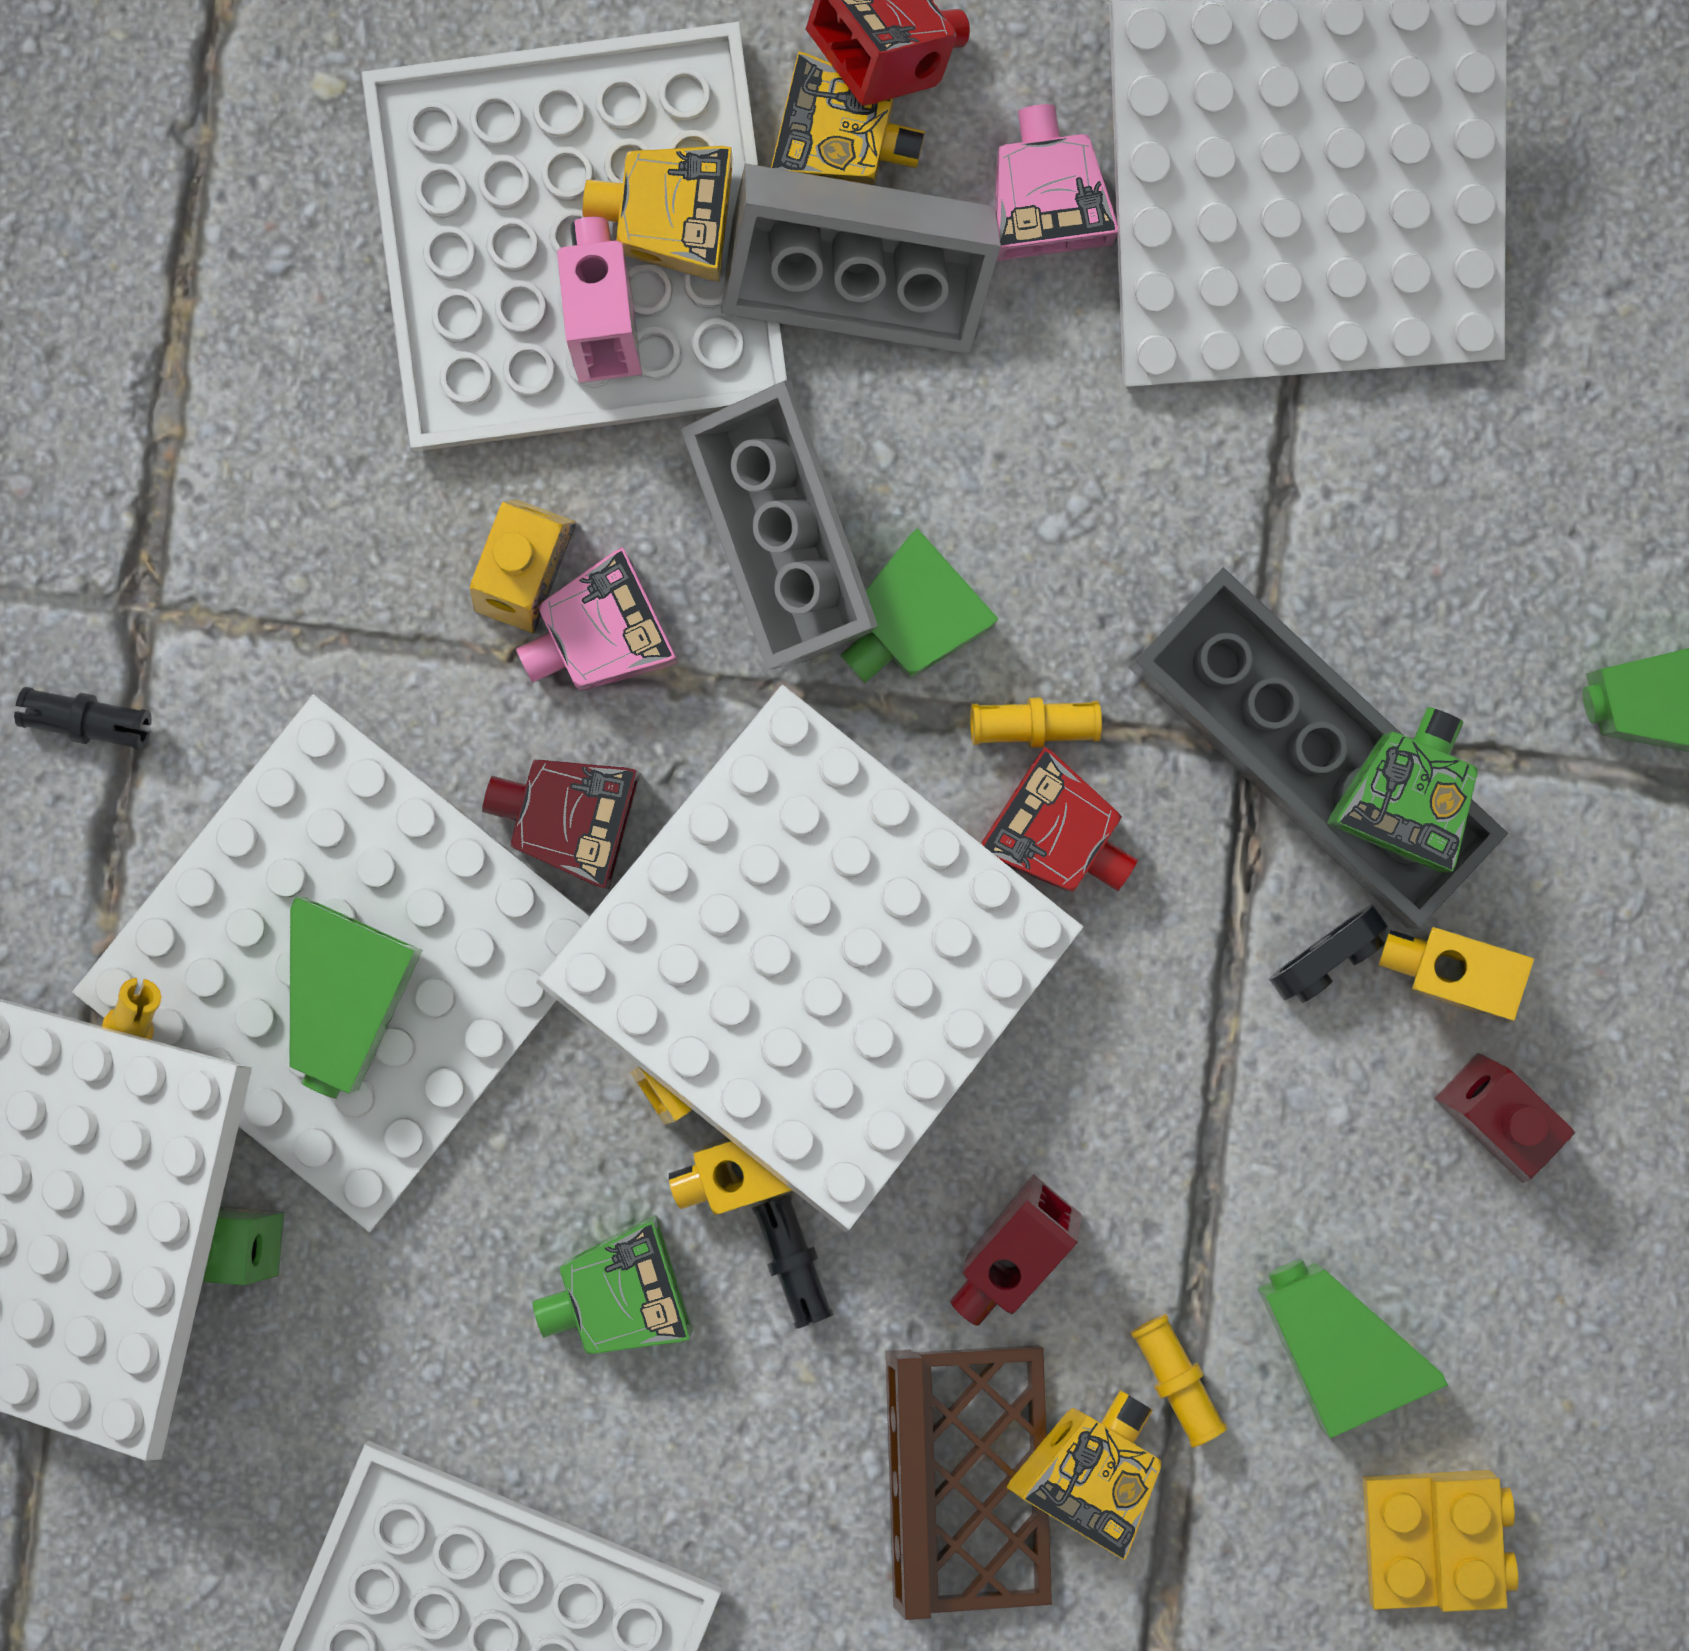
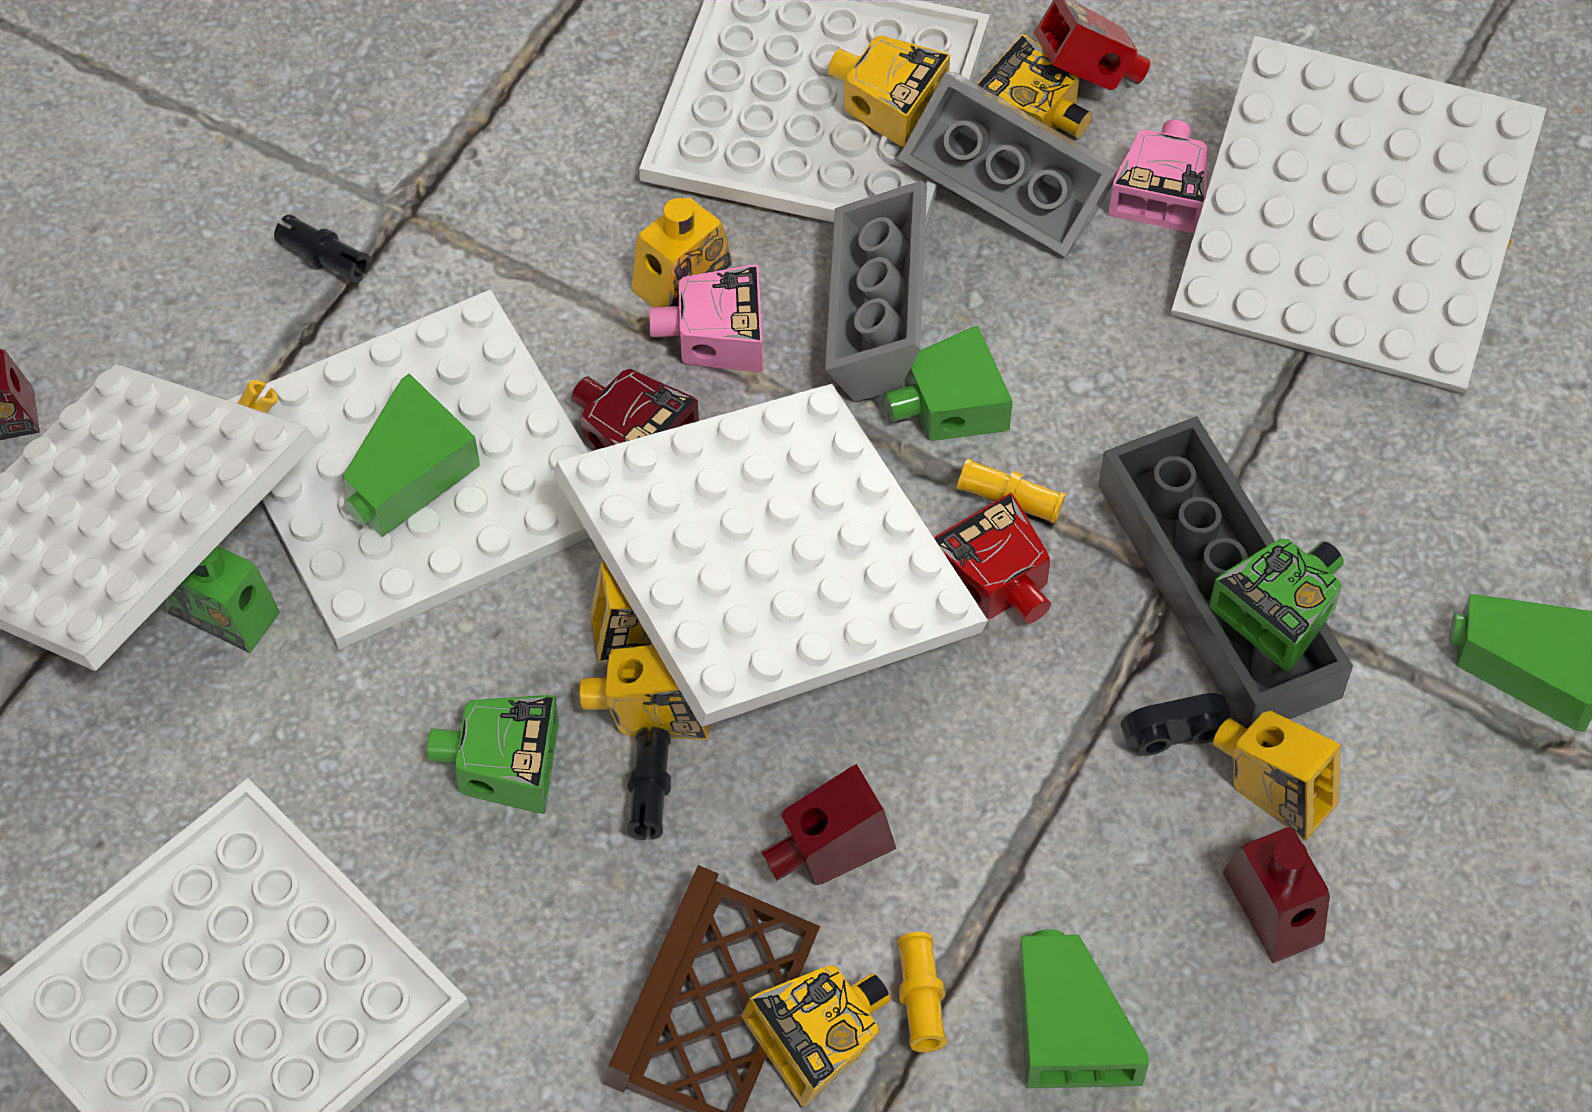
camera: 25 degrees right, 30 degrees down
(598, 303) = (811, 98): bright pink torso -> none

